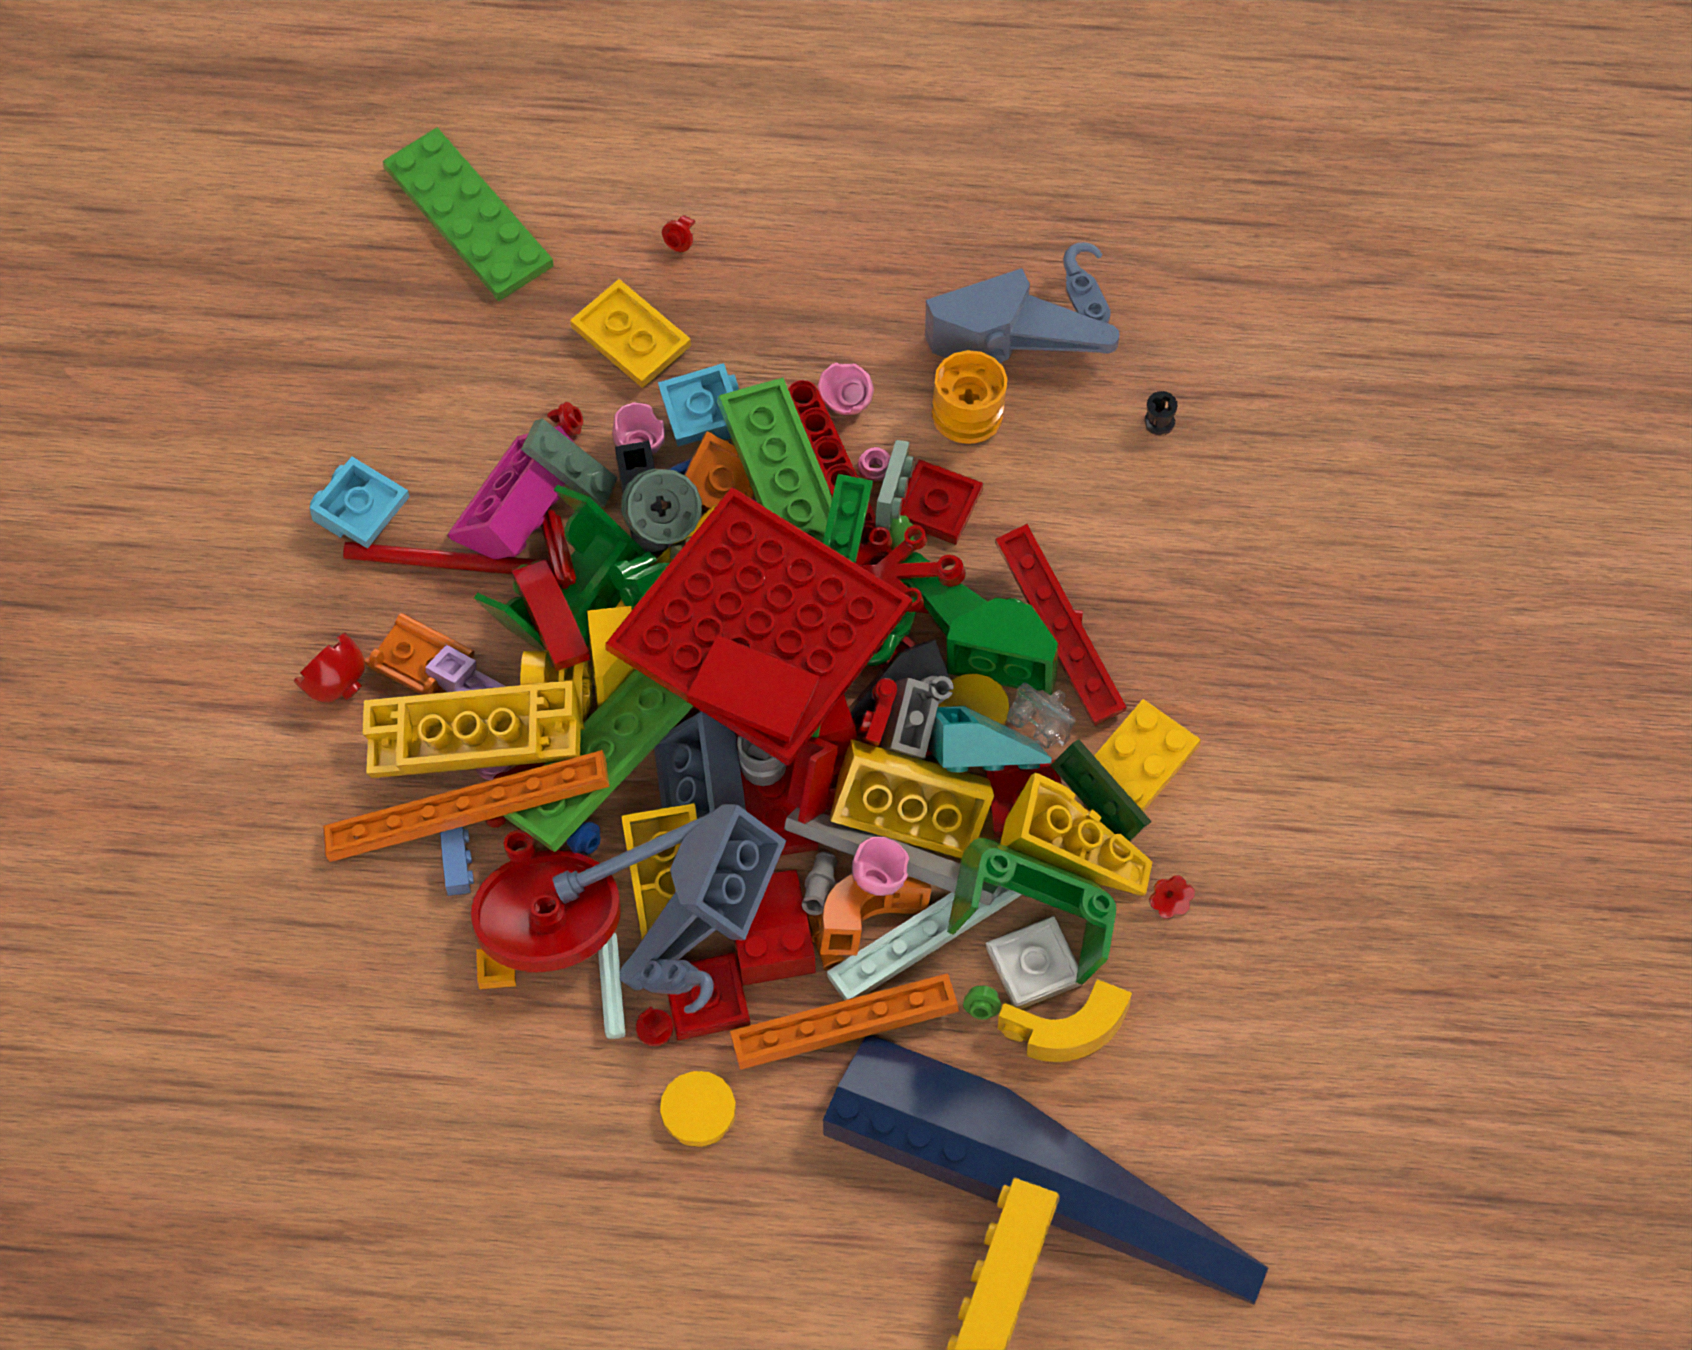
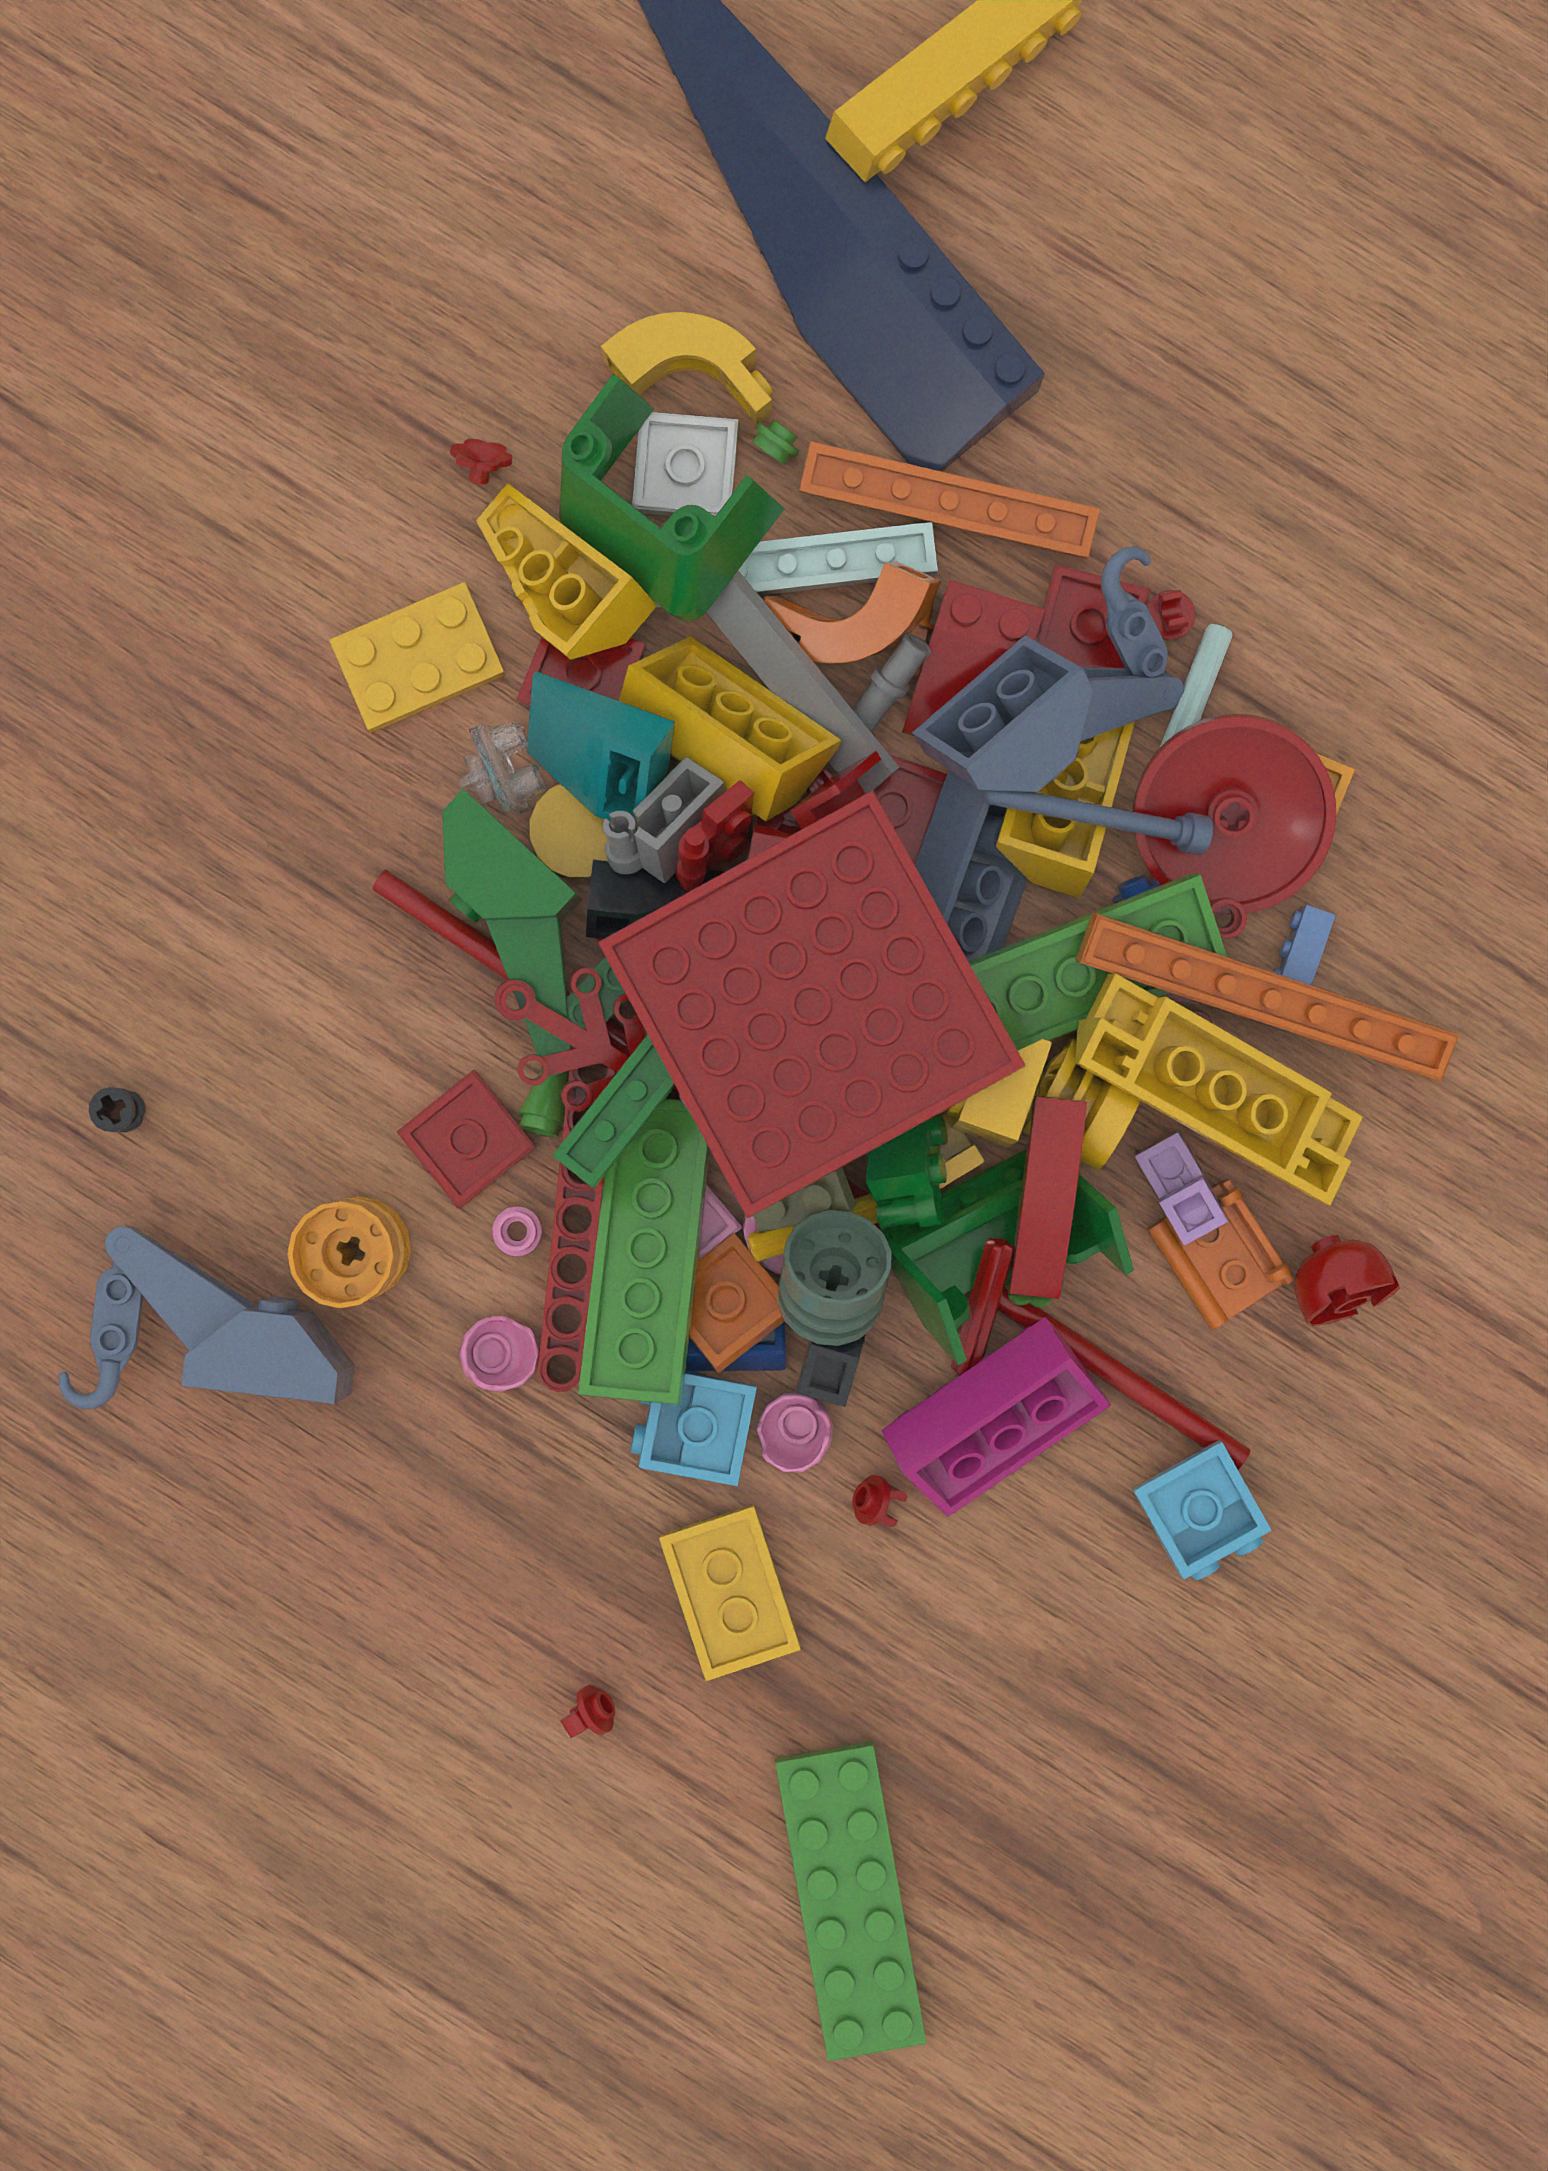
camera: 155 degrees left, 25 degrees up
(569, 462) = (913, 1418): sand green plate -> none
(698, 1108) = (1168, 490): yellow tile -> none
(753, 688) = (871, 904): red tile -> none
(880, 866) = (819, 634): bright pink hair -> none
(894, 485) = (515, 1168): sand green plate -> none
(1050, 602) = (414, 873): red plate -> none
(1100, 791) = (492, 622): dark green plate -> none

